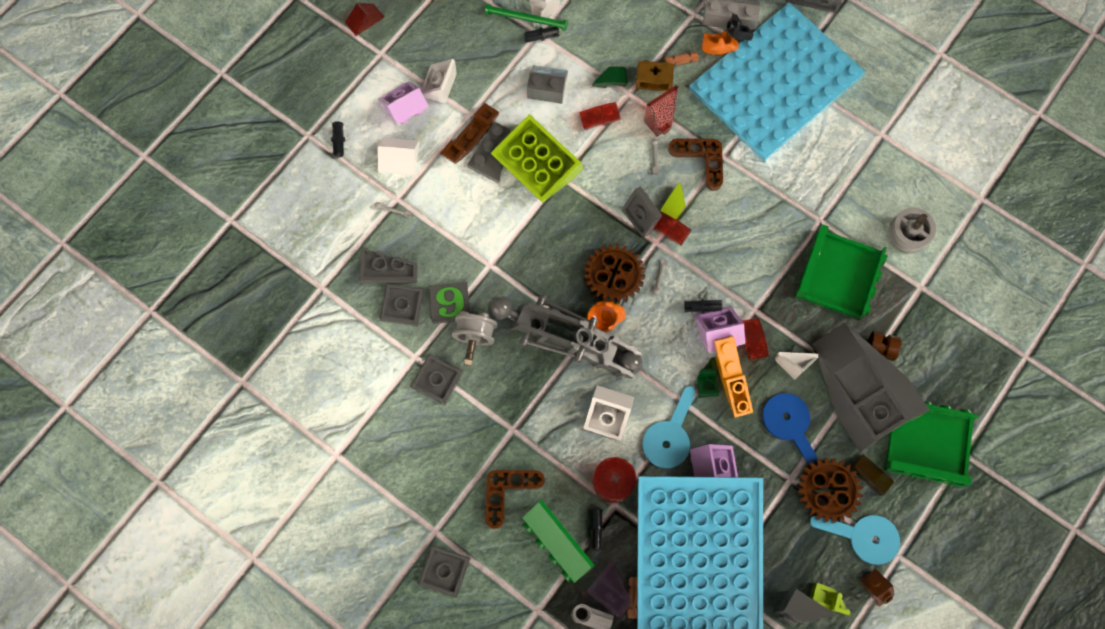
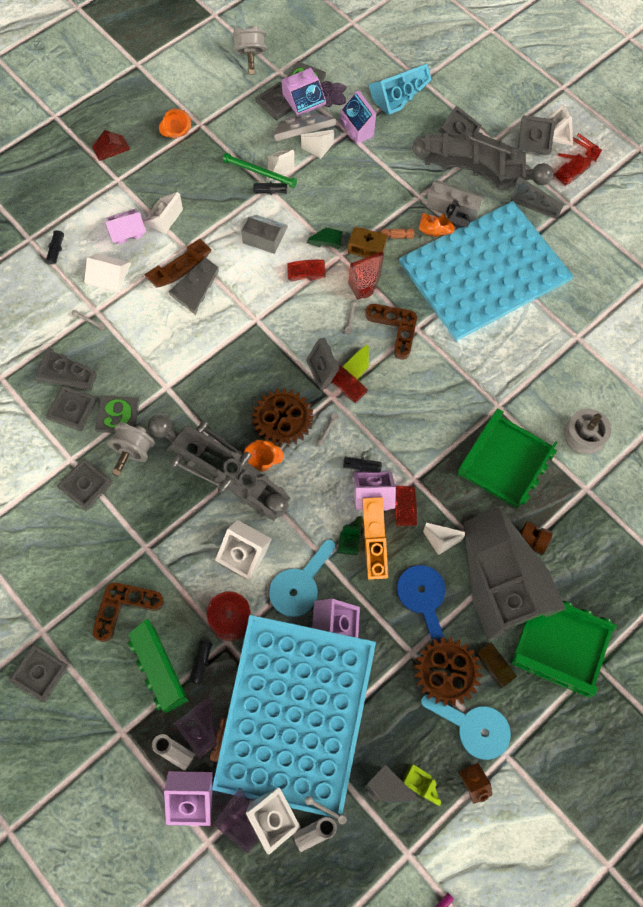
camera: 10 degrees right, 5 degrees down
(537, 159) = (235, 297): lime slope -> none

